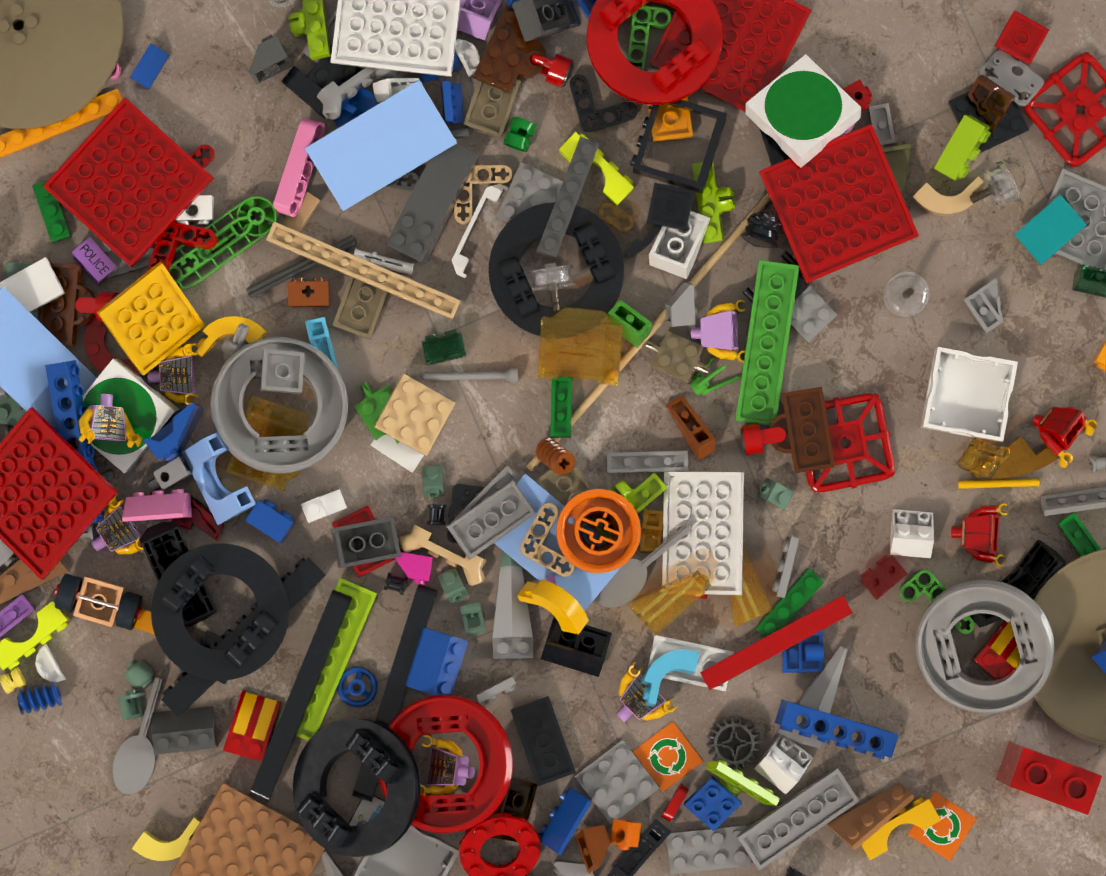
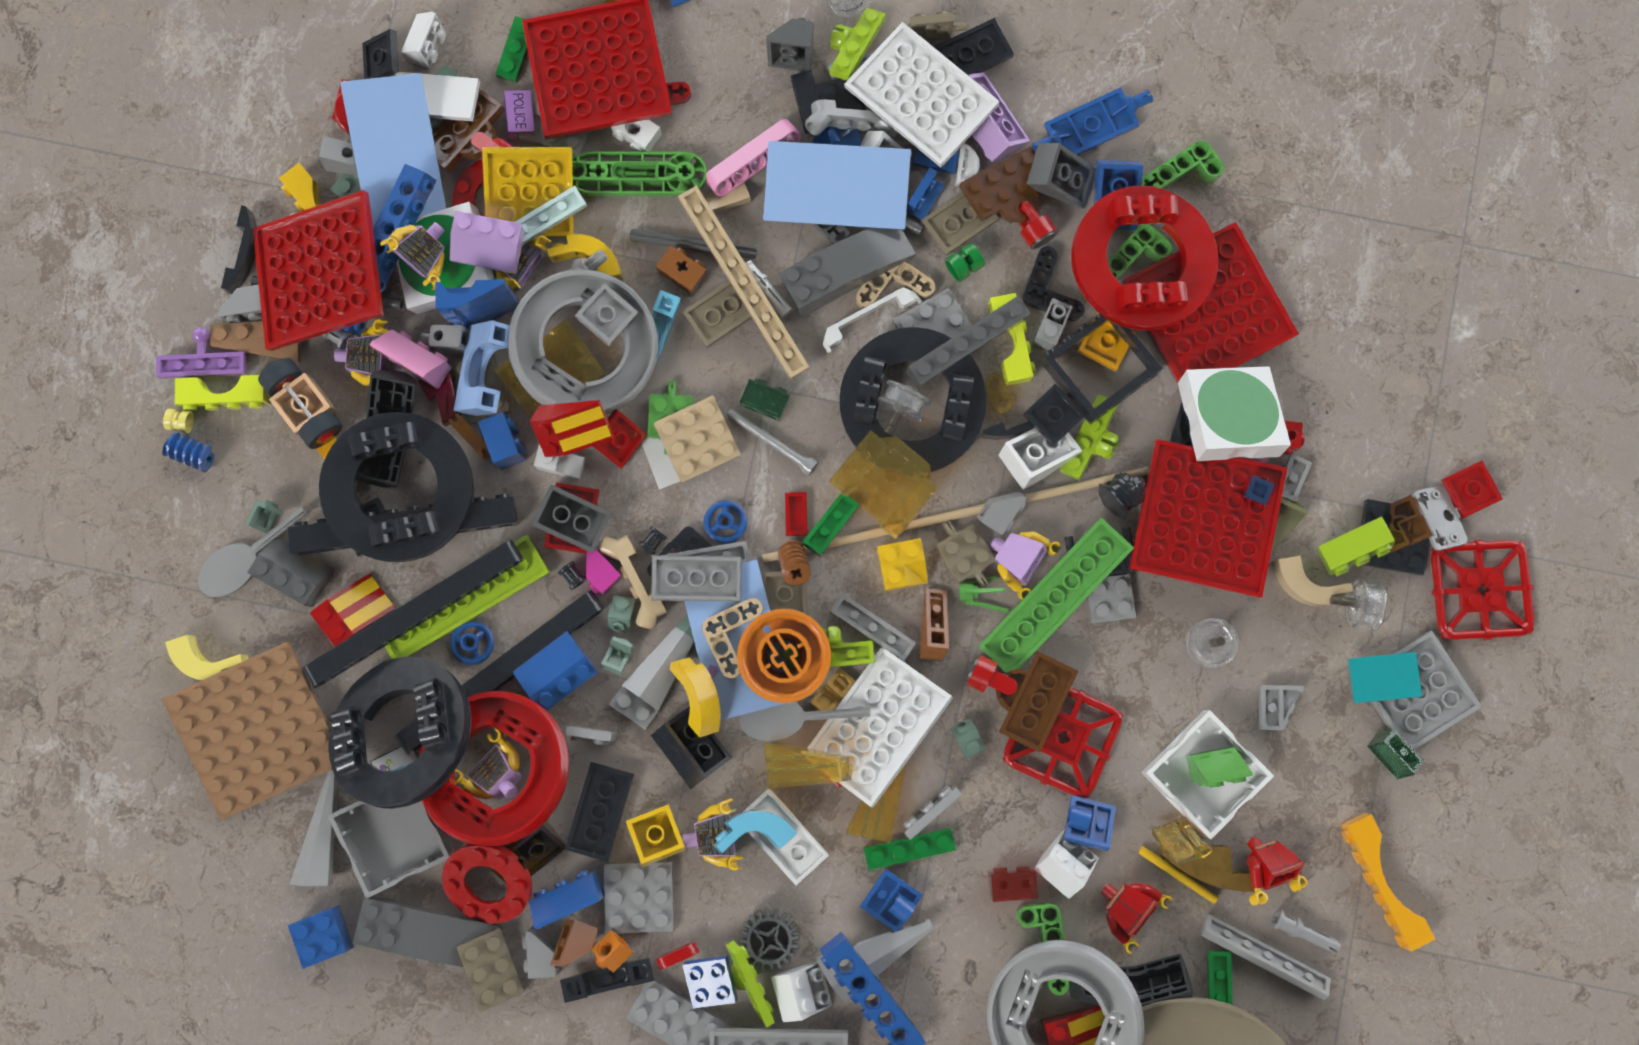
camera: 35 degrees right, 5 degrees down
(47, 665) = (218, 430): white plate -> none
(139, 674) = (290, 493): sand green head -> none
(151, 381) = (486, 242): none -> lavender slope
(173, 340) = (551, 213): none -> light aqua plate
(178, 237) = (603, 140): red beam -> none
(243, 534) = (470, 436): none -> orange piece
(318, 475) = (570, 427): none -> red slope
(356, 457) = (625, 441): none -> red tile
(432, 481) = (670, 508): sand green bracket -> none
(471, 449) = (740, 529): none -> blue piece
(529, 418) = (796, 514): none -> red tile
(597, 728) = (655, 836): none -> yellow slope
(620, 136) = (1052, 325): none -> light grey slope
(635, 326) = (947, 499): bright green brick -> none
(636, 399) = (902, 564): none -> yellow slope
(667, 756) = (701, 907): orange sticker -> none
(776, 642) = (873, 875): red tile -> none
(861, 157) = (1258, 490): none -> dark blue plate
(907, 492) = (1089, 823): none -> blue plate
(970, 384) = (1216, 766): none -> bright green slope

